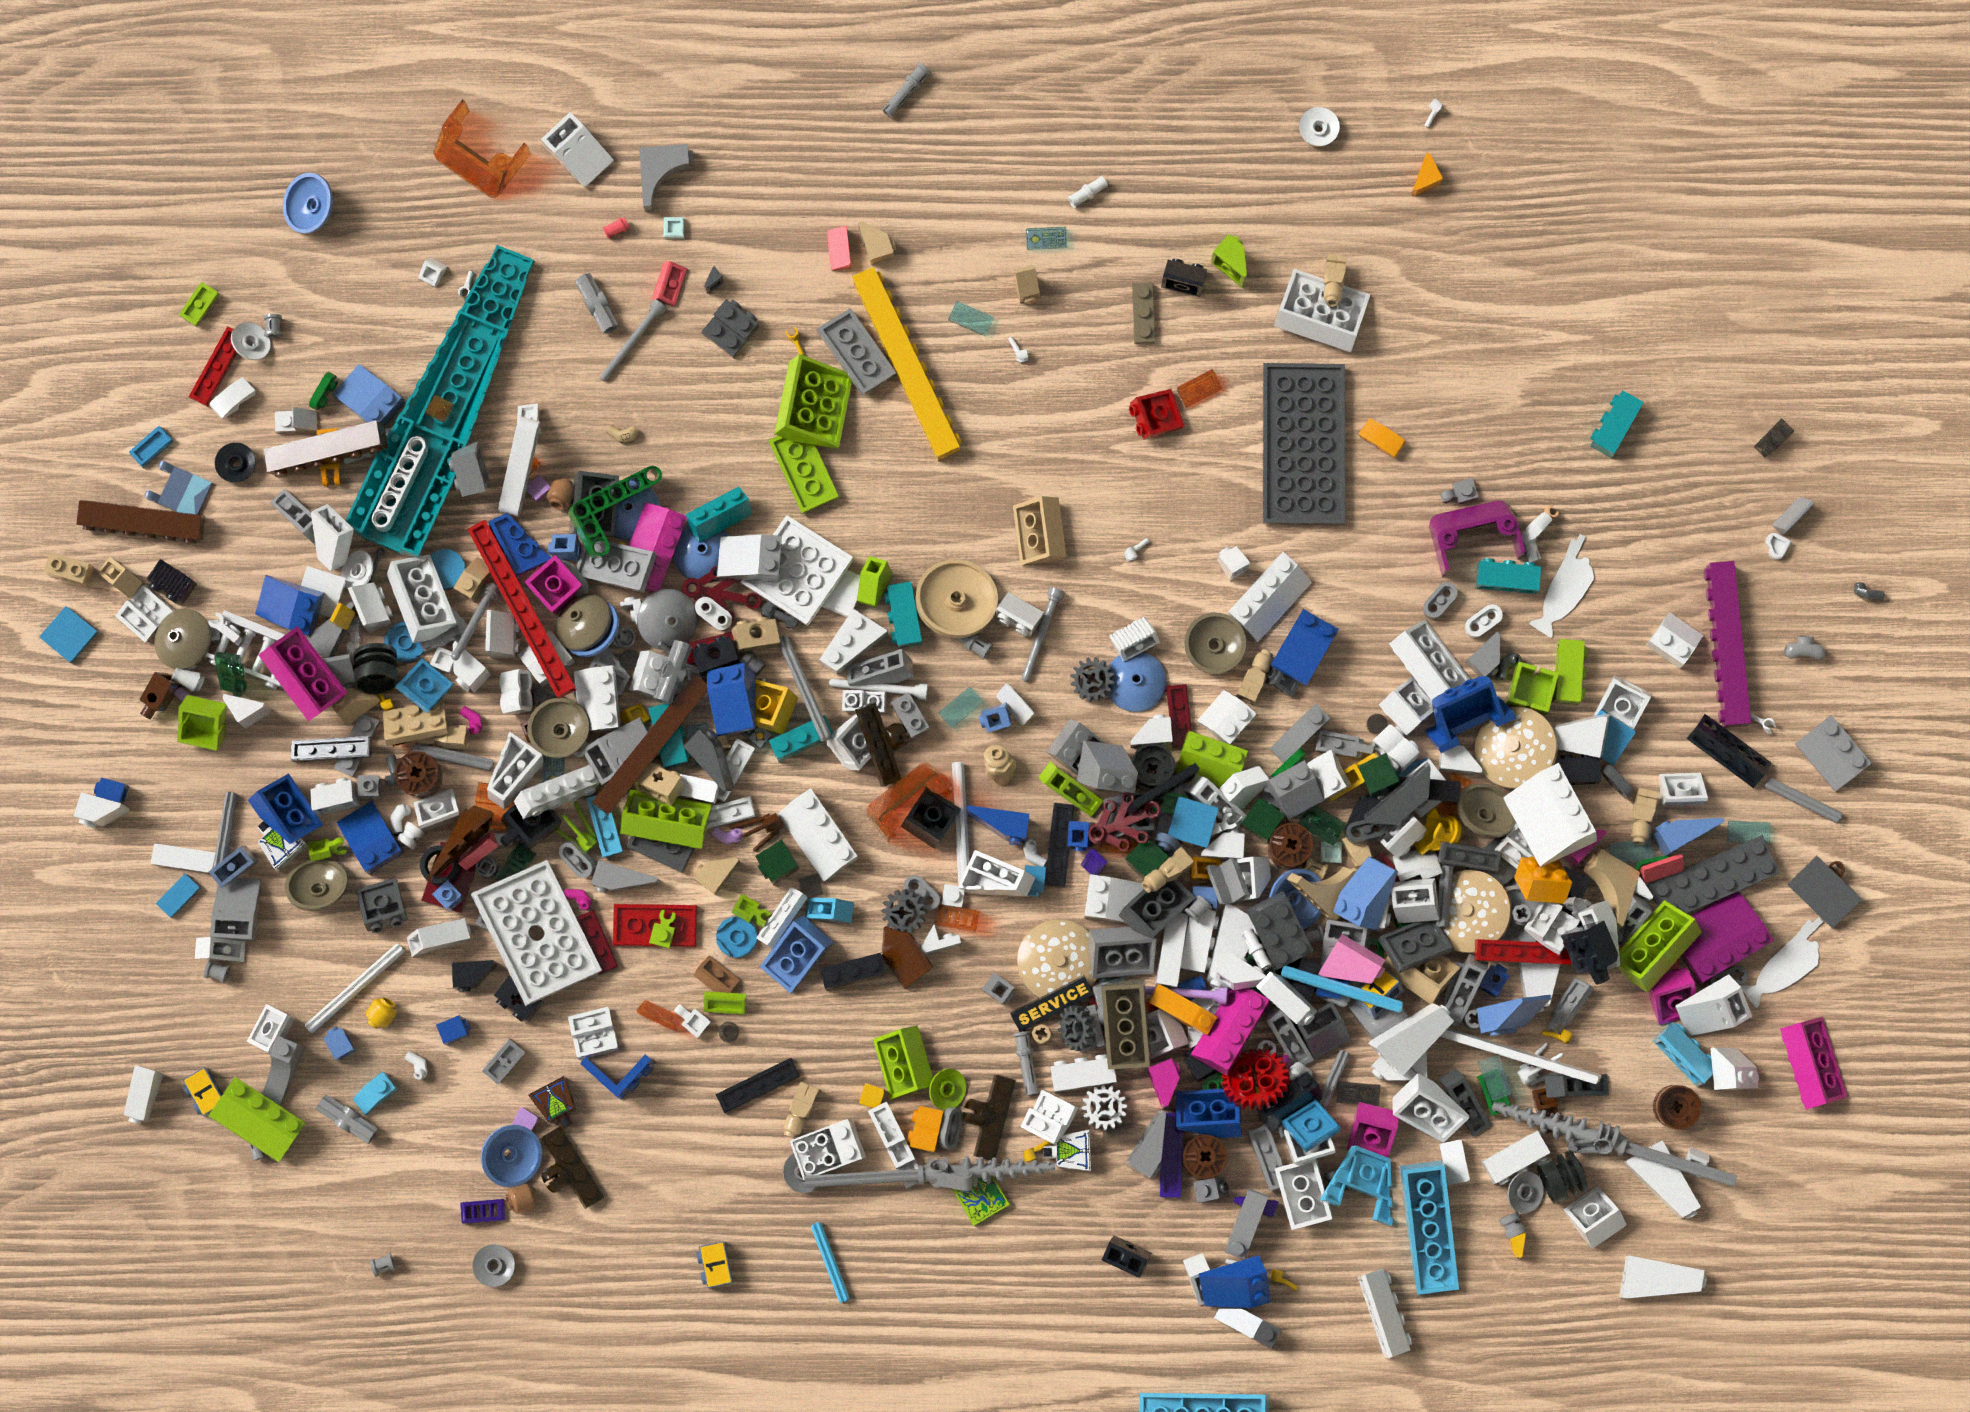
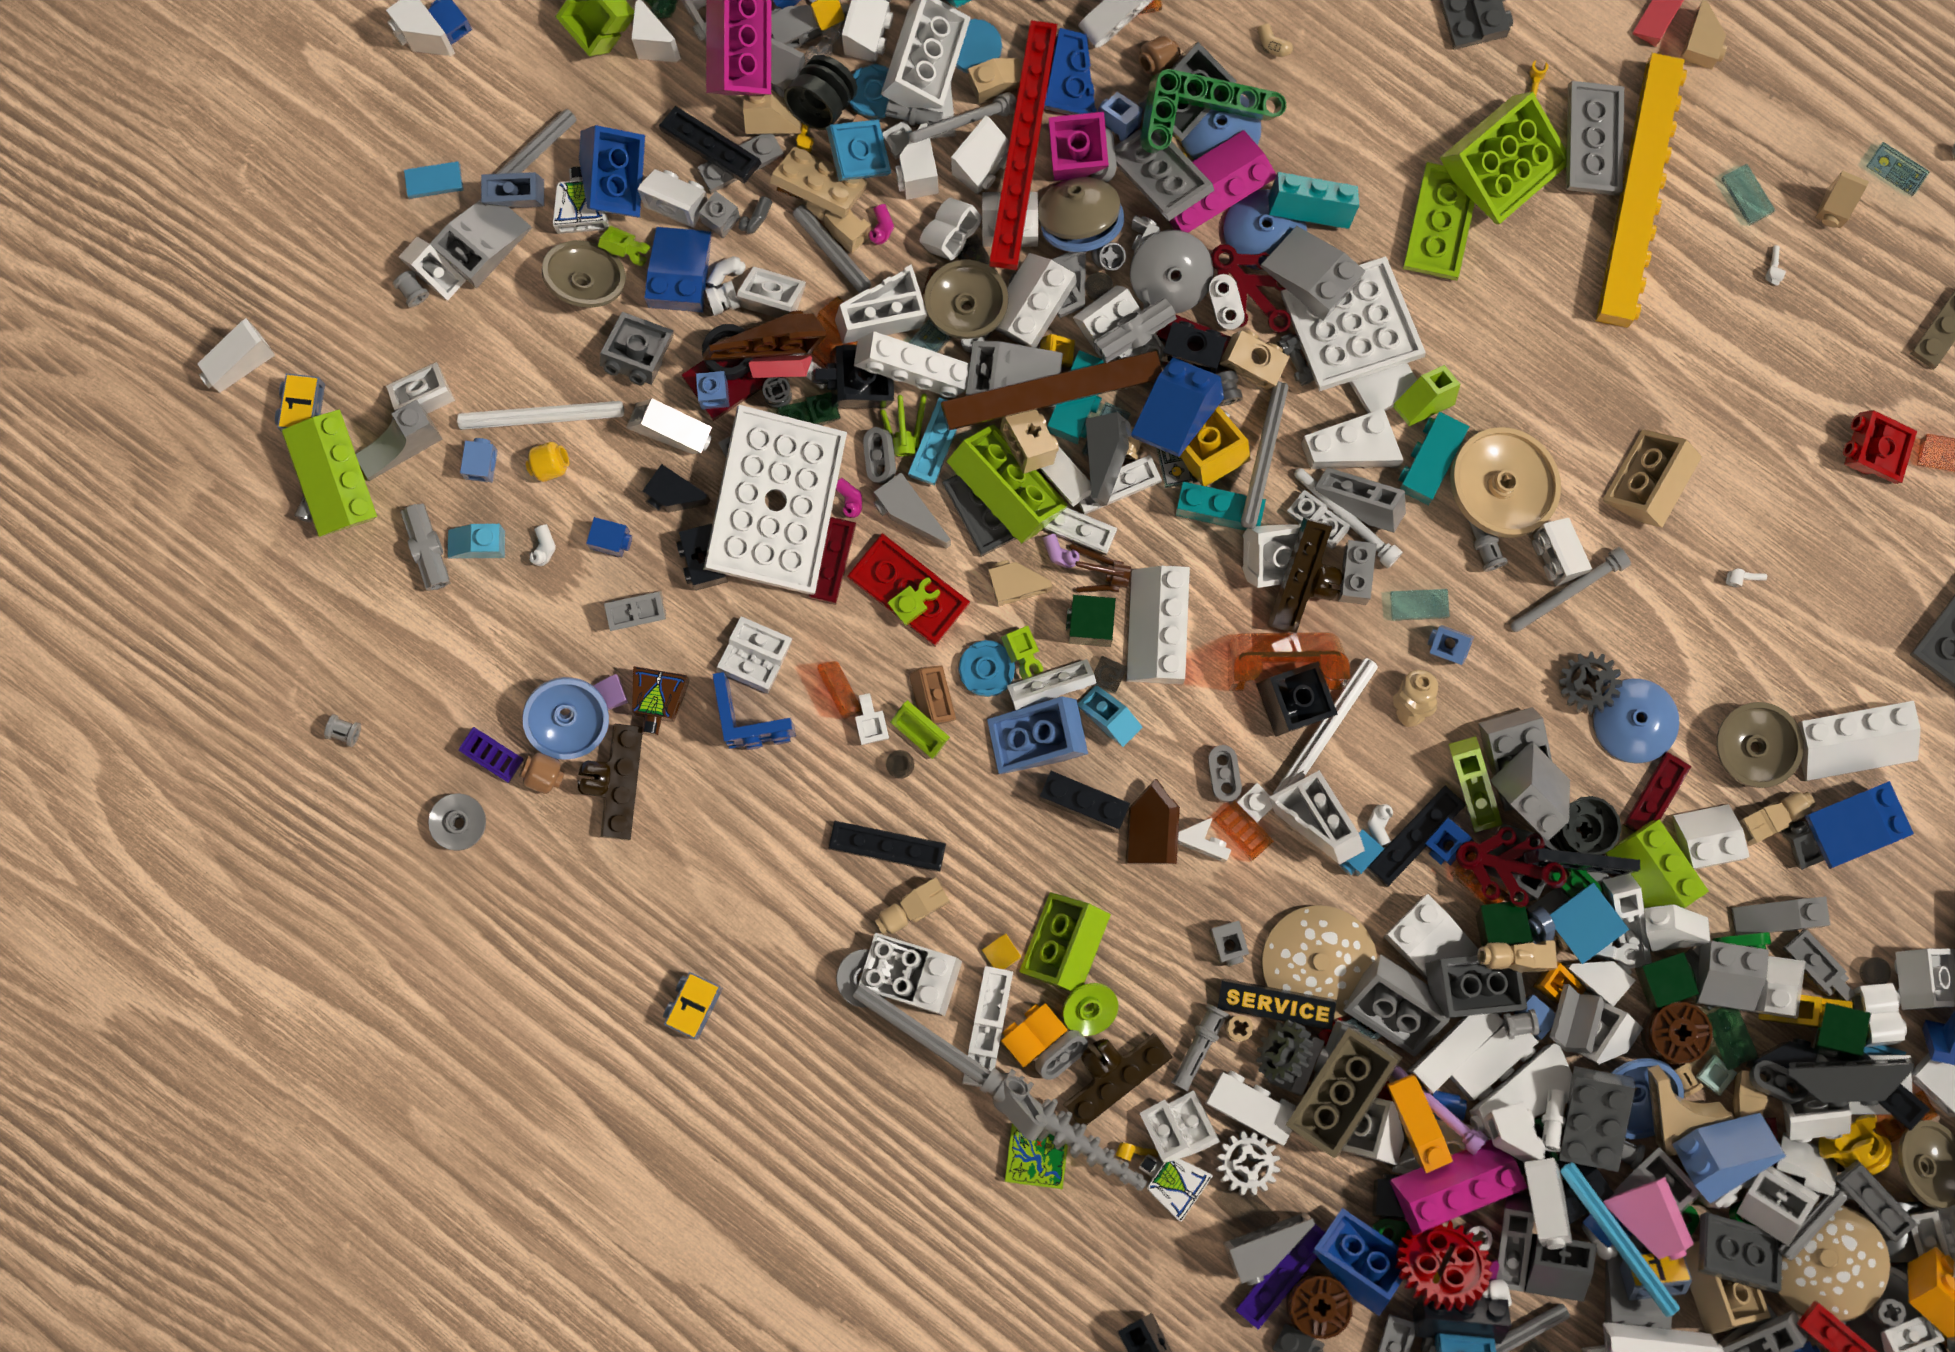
camera: 40 degrees right, 0 degrees up
(182, 858) = (467, 143): white tile -> none
(430, 777) = (792, 248): reddish brown wheel -> none
(538, 488) = (1138, 33): lavender slope -> none
(830, 1262) = (818, 1099): medium azure axle -> none
(904, 902) = (1197, 770): dark grey gear -> none
(1006, 824) = (1374, 767): blue slope -> none
(1015, 704) = (1483, 648): white slope -> none
(1094, 862) = (1441, 884): dark purple slope -> none
(1134, 639) = (1671, 673): white brick -> none
(1154, 732) = (1619, 790): white slope -> none
(1164, 1080) = (1339, 1186): dark pink slope -> none
(1233, 562) = (1846, 672): white slope -> none

